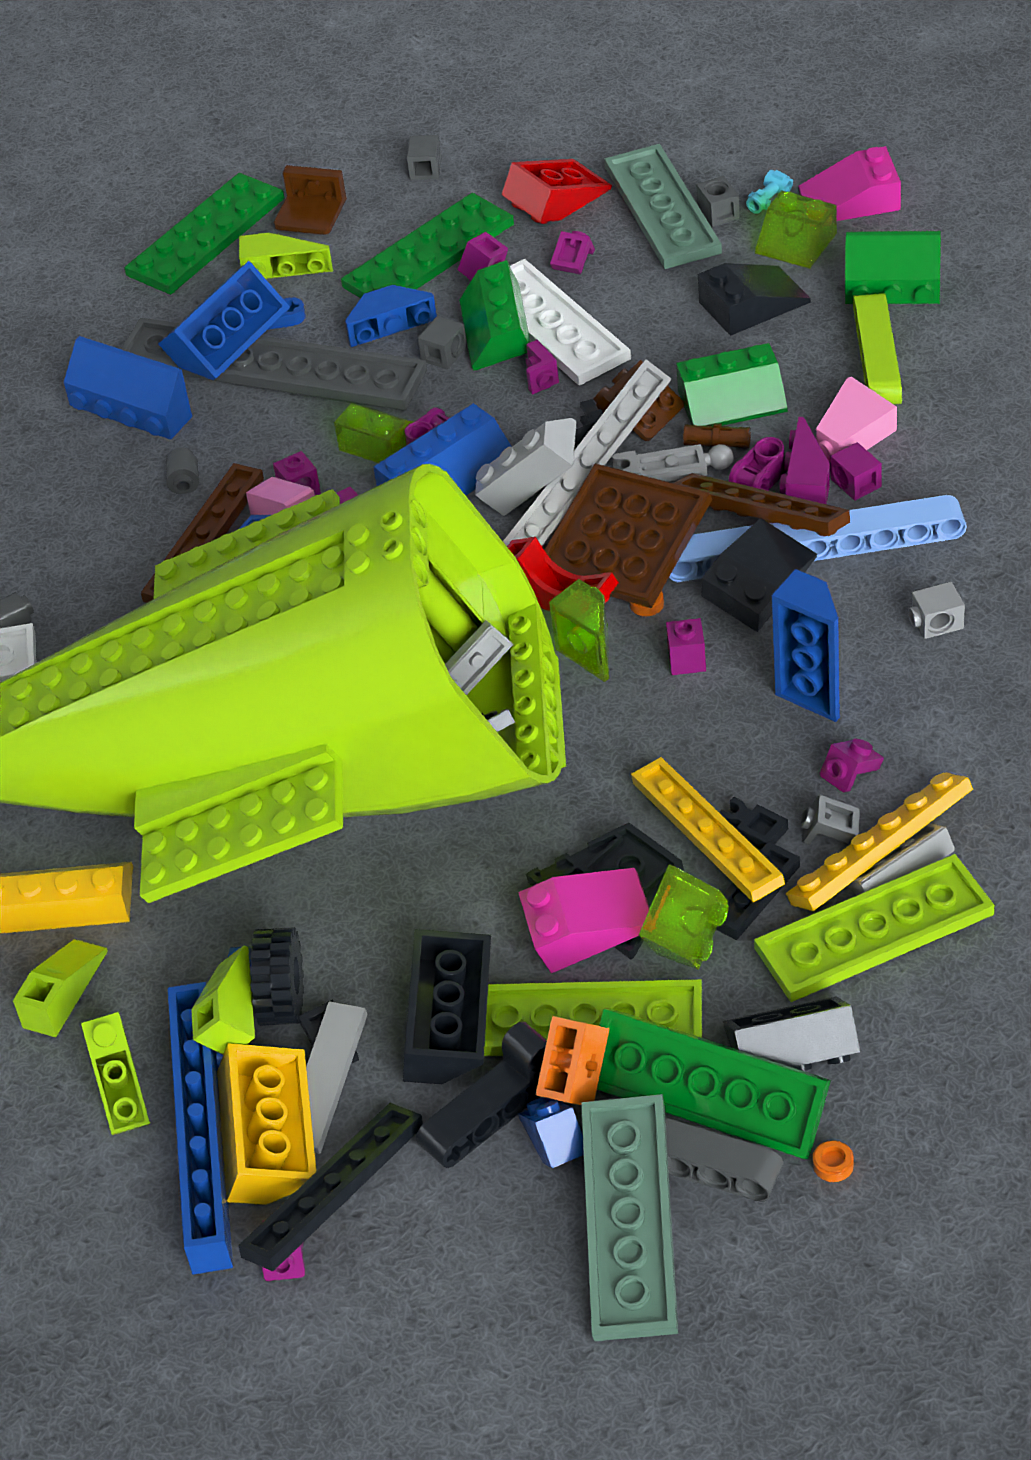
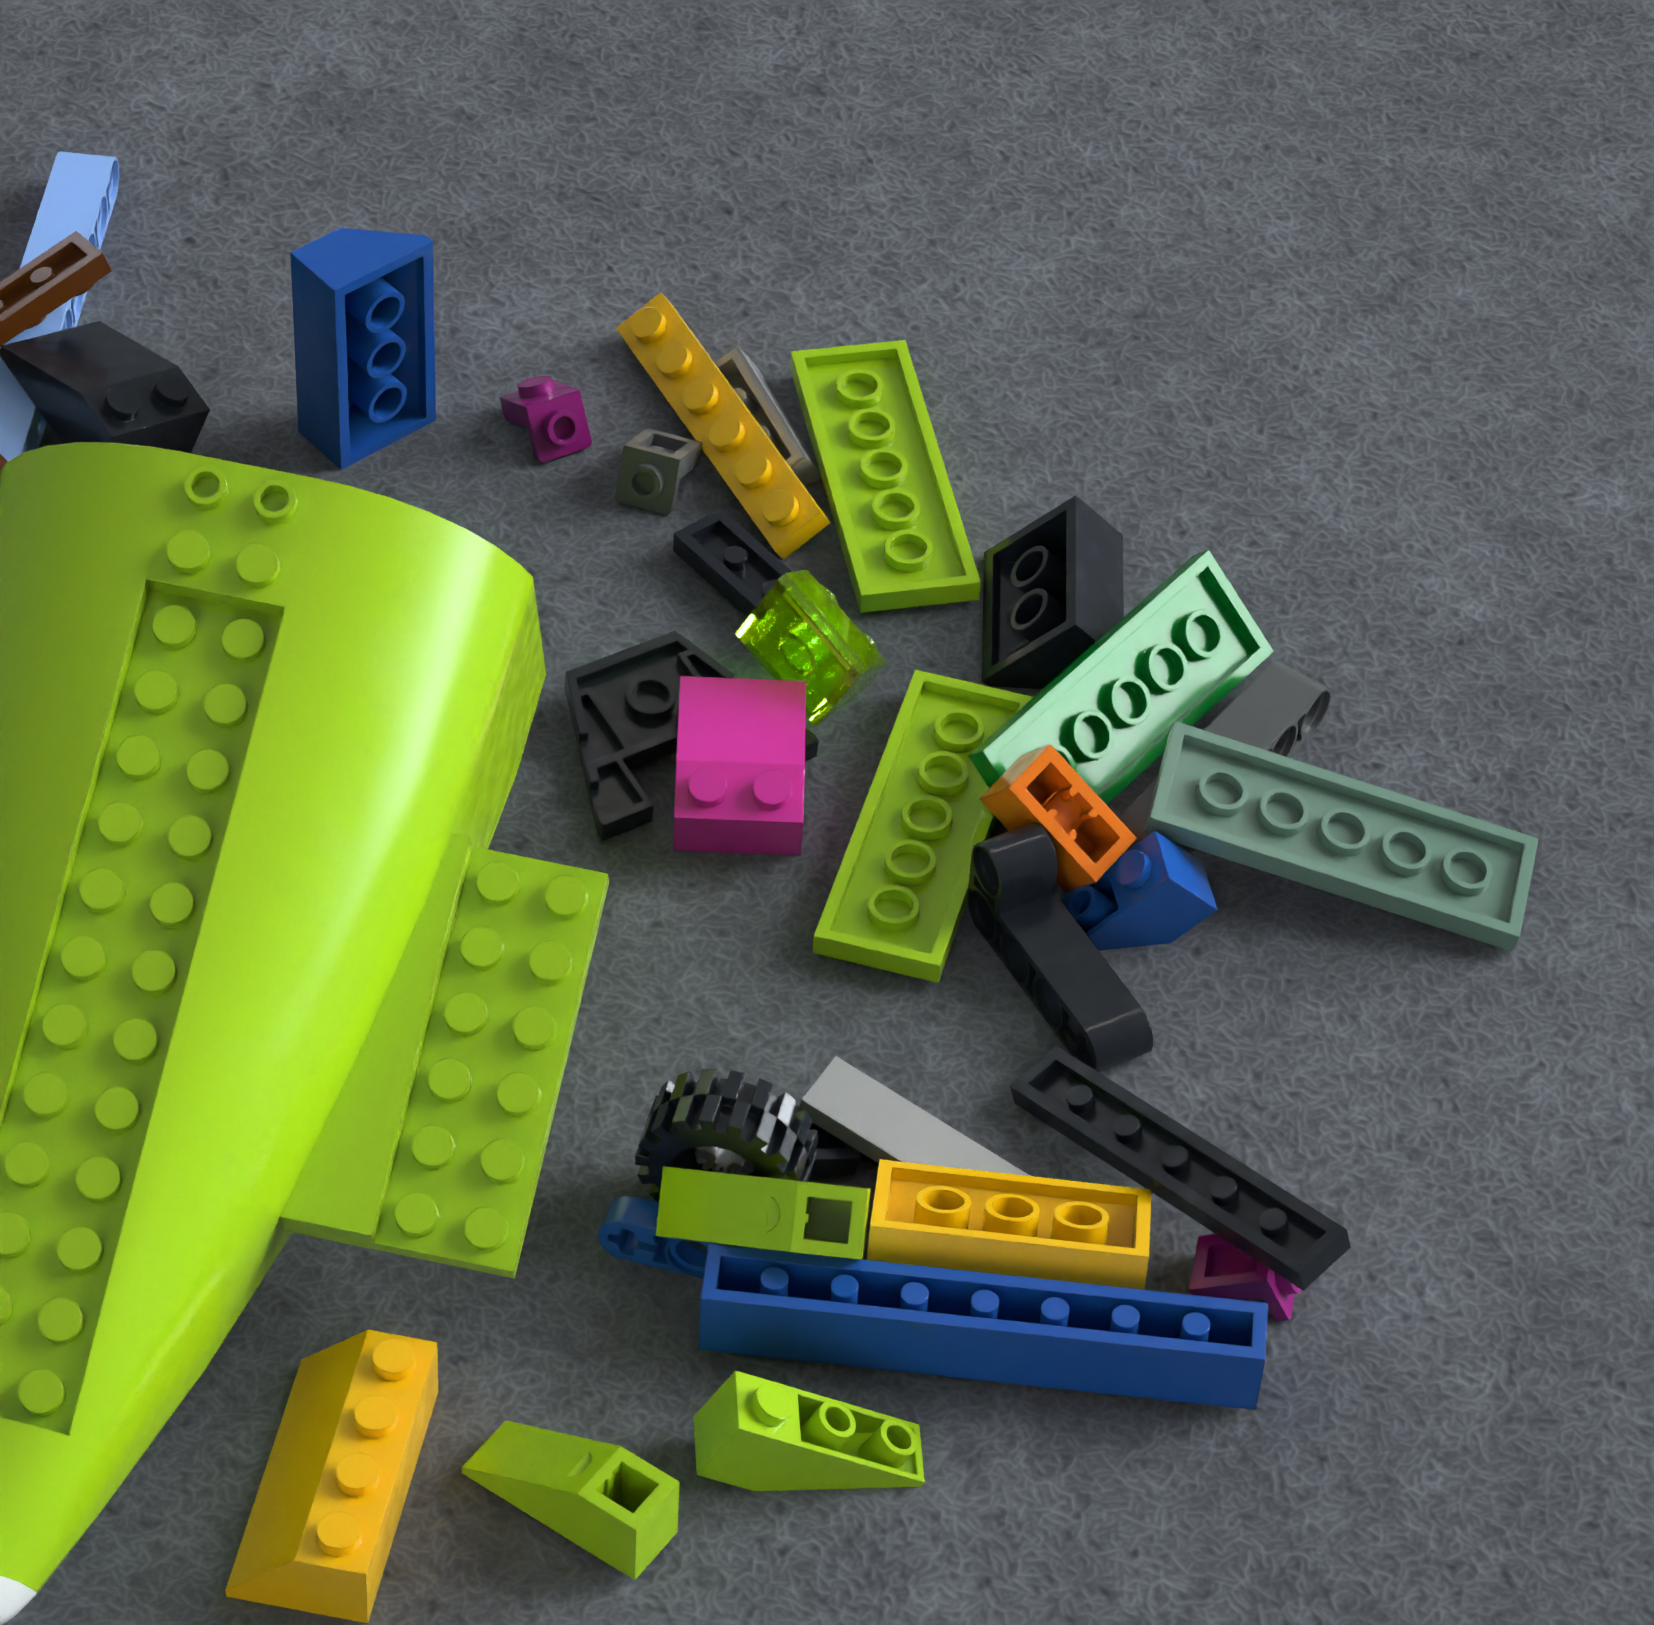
camera: 85 degrees left, 0 degrees up
(446, 1005) = (856, 966): black slope -> none
(708, 829) = (668, 574): yellow plate -> none
(756, 825) = (622, 543): black plate -> none
(833, 1161) = (1284, 626): orange tile -> none
(937, 610) = (280, 228): light grey brick -> none

